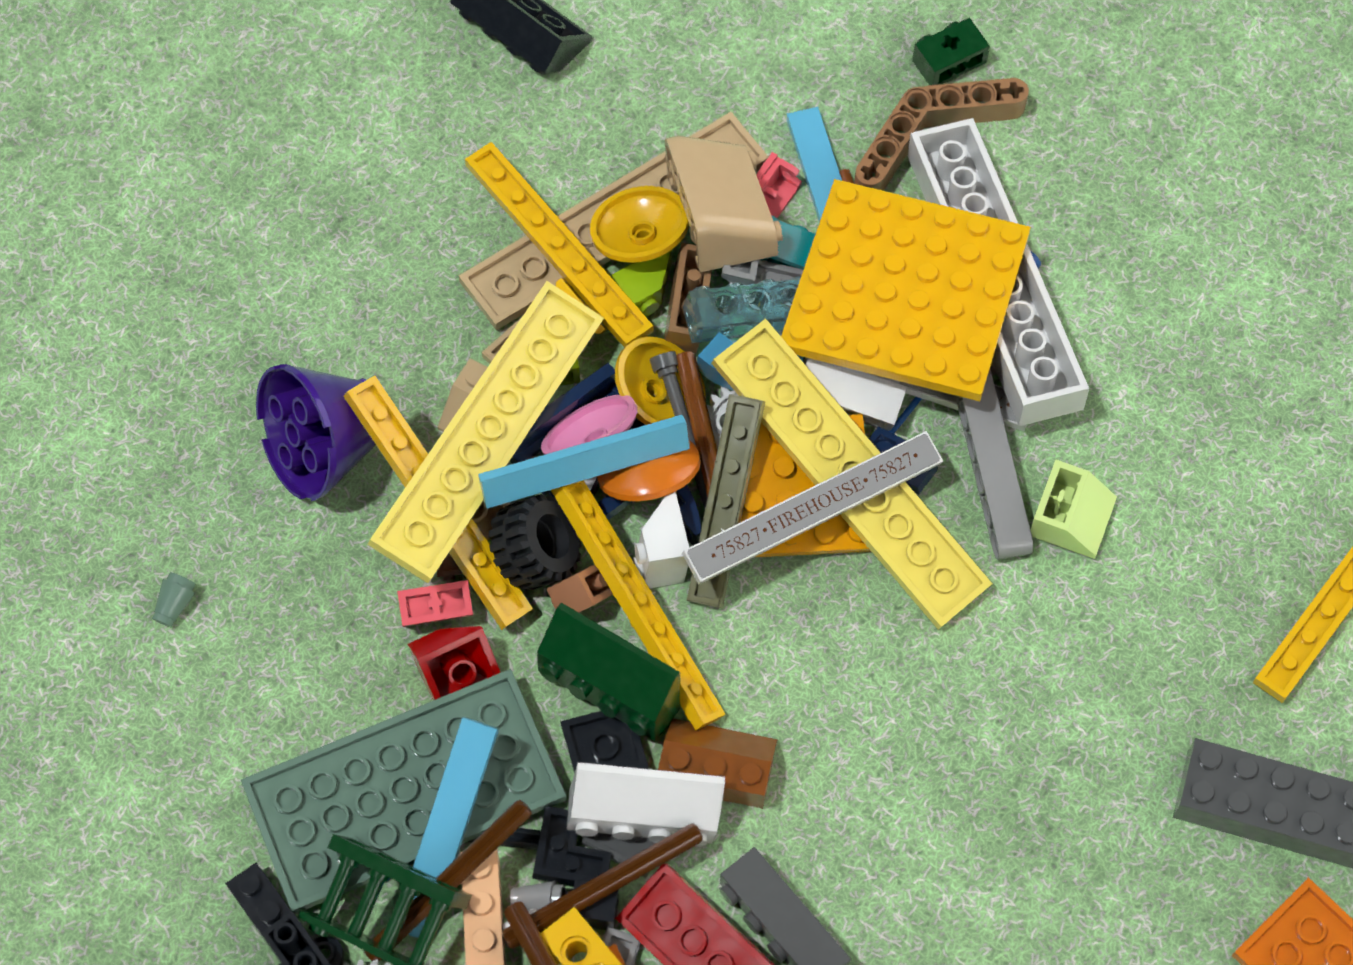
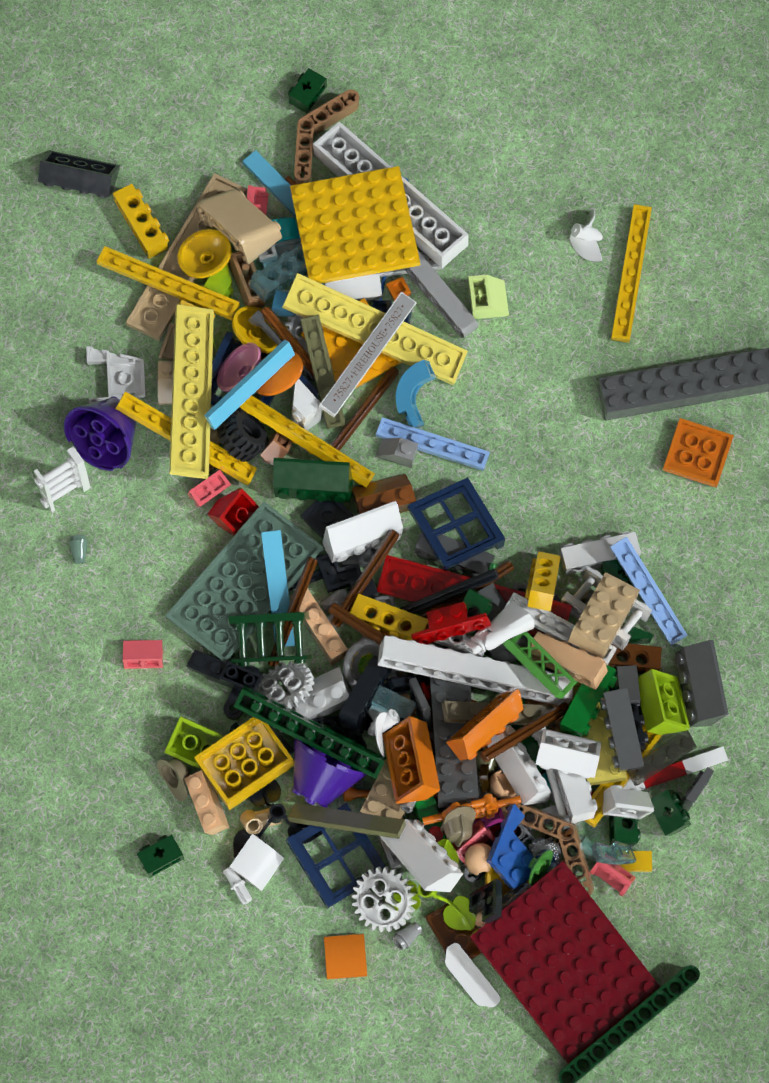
camera: 30 degrees left, 5 degrees up
(169, 826) = (142, 654): none -> coral hinge
(226, 457) = (62, 479): none -> white fence
(409, 356) = (123, 373): none -> white wing
(568, 88) = (151, 245): none -> yellow brick
(767, 597) = (365, 408): none -> reddish brown axle
(784, 696) = (398, 451): none -> light grey slope
(850, 712) = (435, 444): none -> light blue plate
(853, 599) = (408, 388): none -> dark azure arch
(865, 869) = (495, 536): none -> dark blue window
(933, 422) = (396, 287): none -> orange plate
(1291, 492) = (584, 240): none -> white piece

